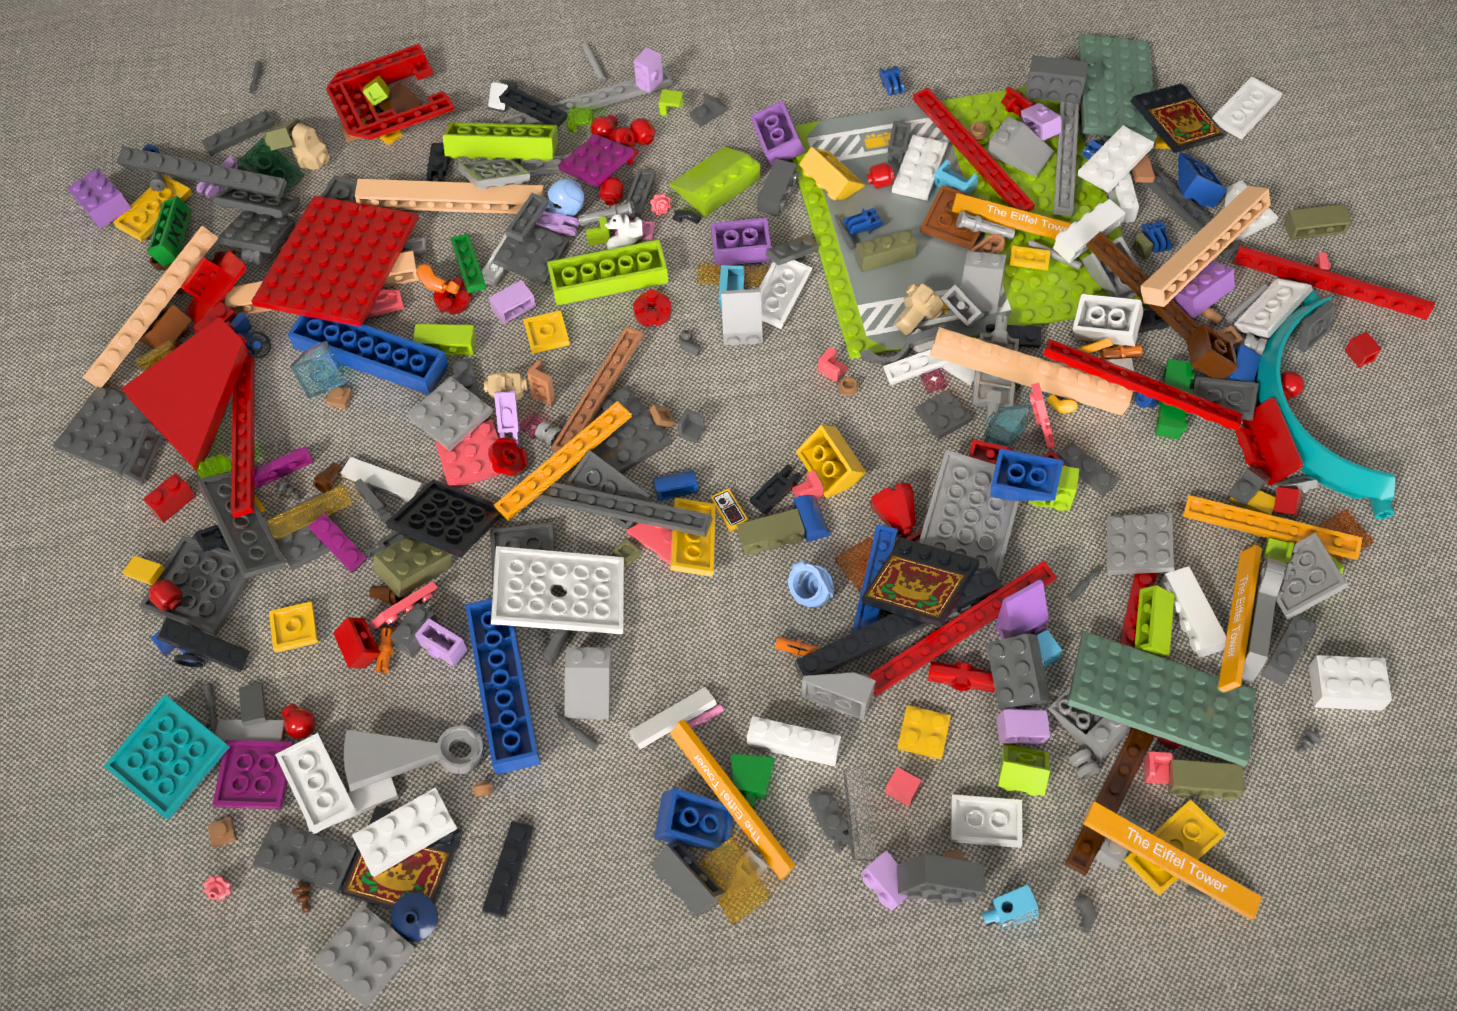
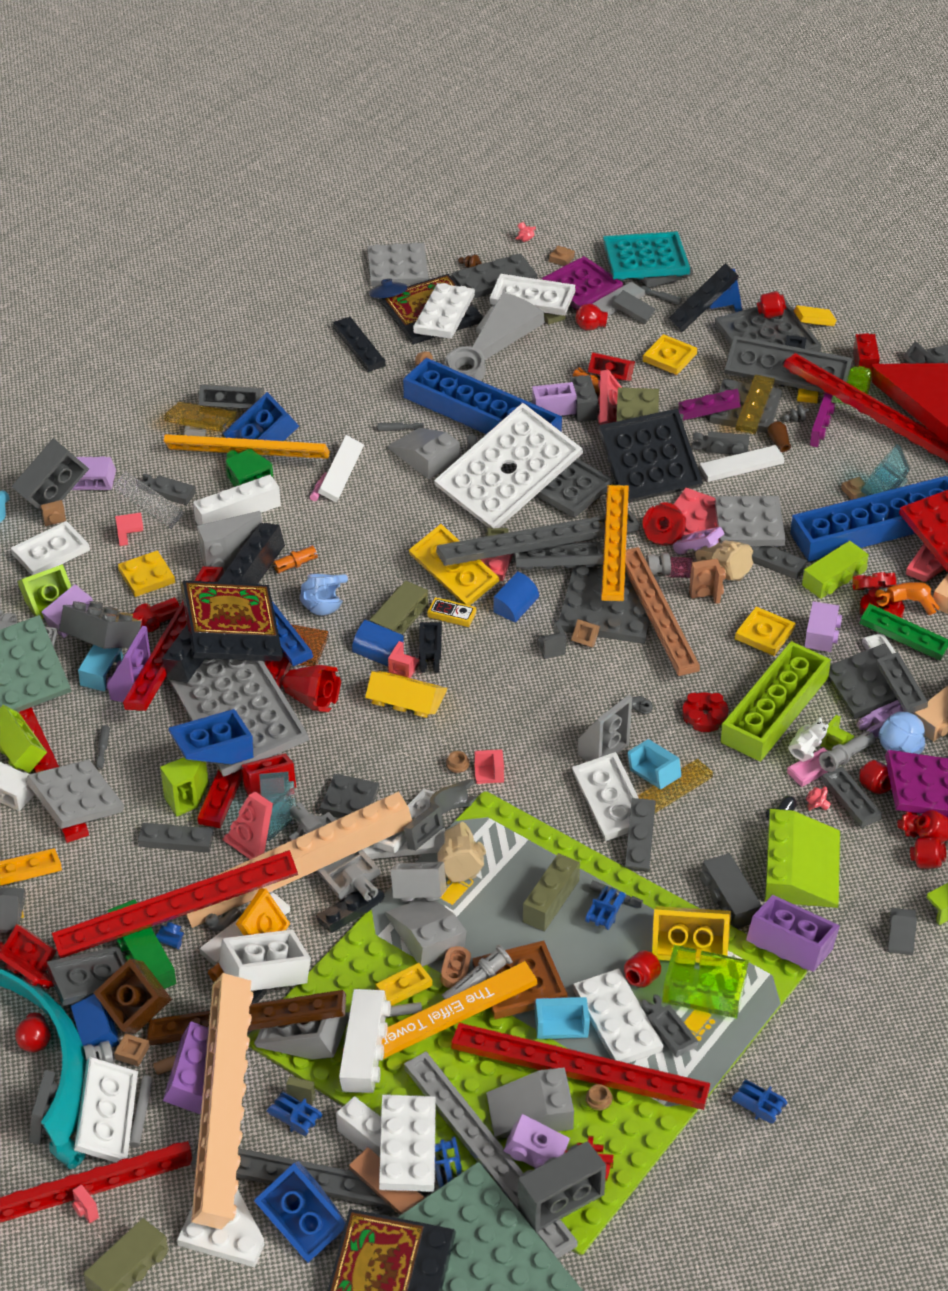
camera: 135 degrees right, 15 degrees down
(431, 307) = (877, 580): none -> red plate
(740, 241) = (695, 807): medium lavender brick -> none
(858, 140) = (712, 988): none -> clear neon green piece

